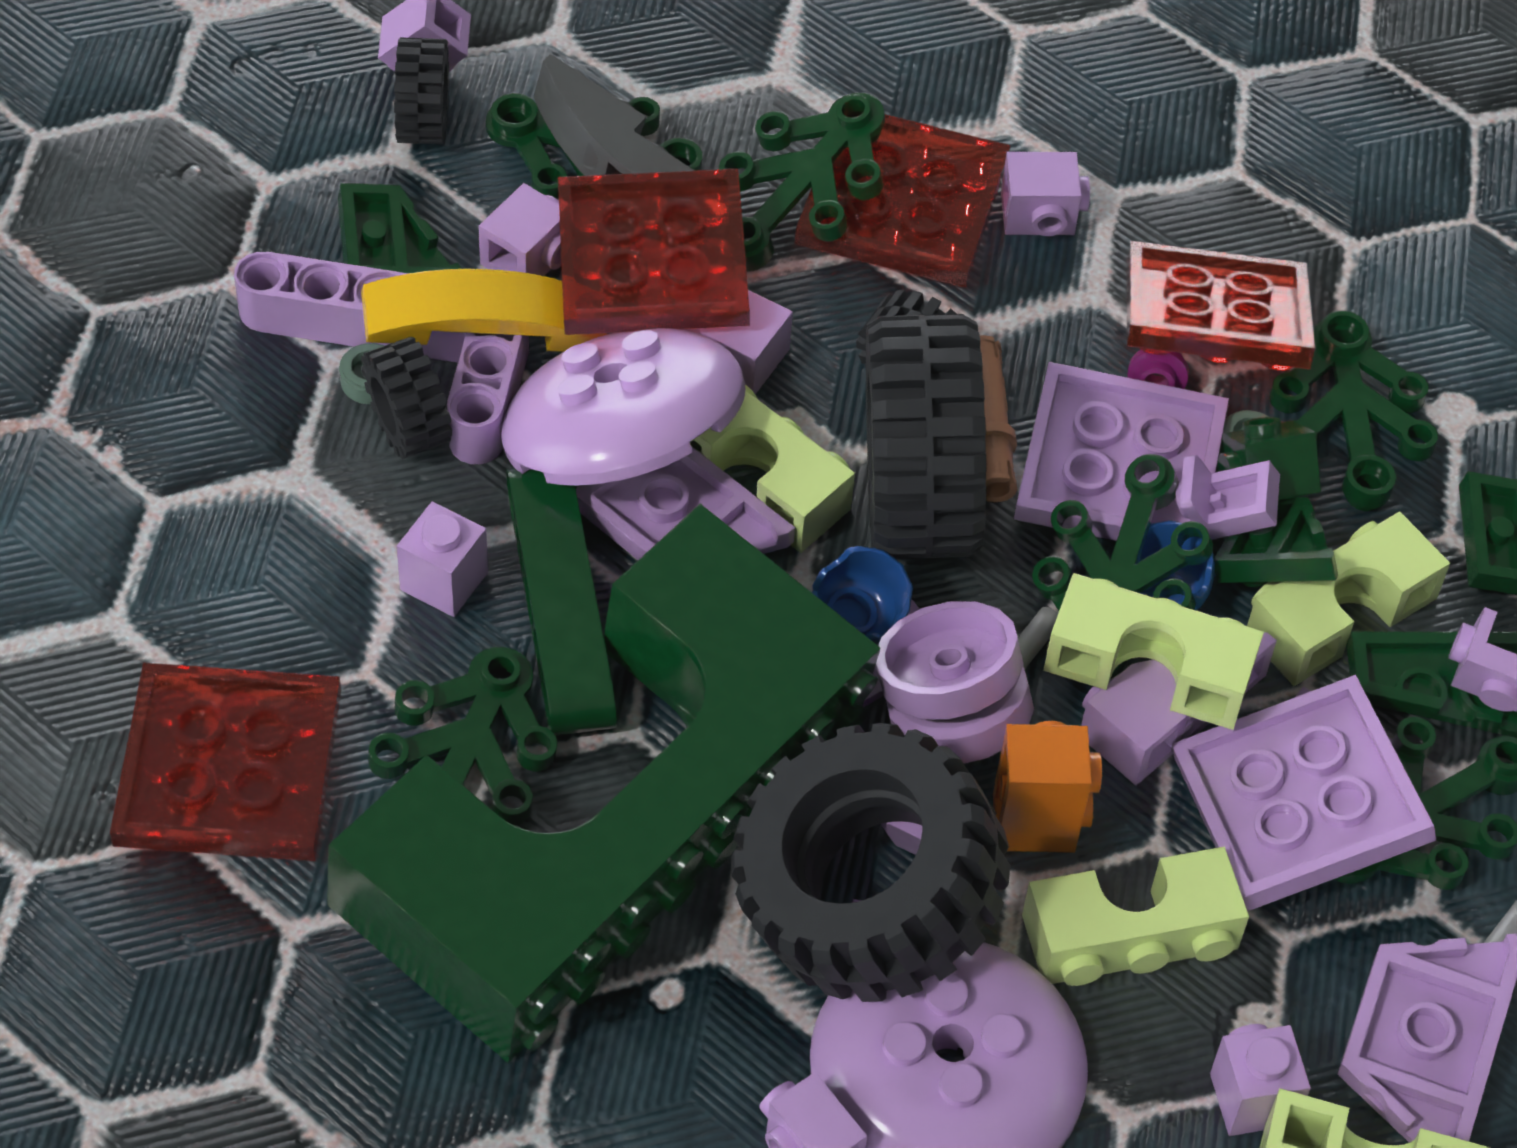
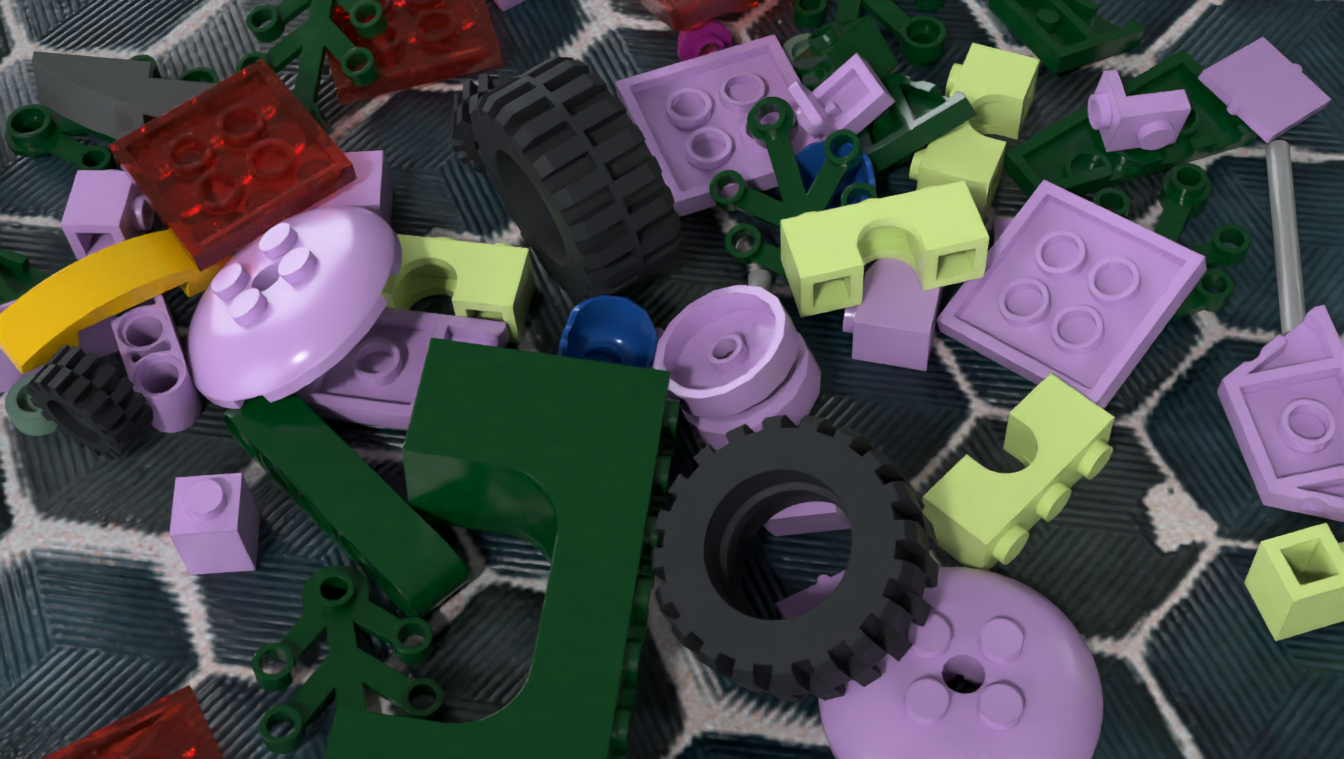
camera: 25 degrees left, 0 degrees up
(1046, 786) = (880, 397): orange brick -> none
(1251, 1070) = (1217, 544): lavender brick -> none

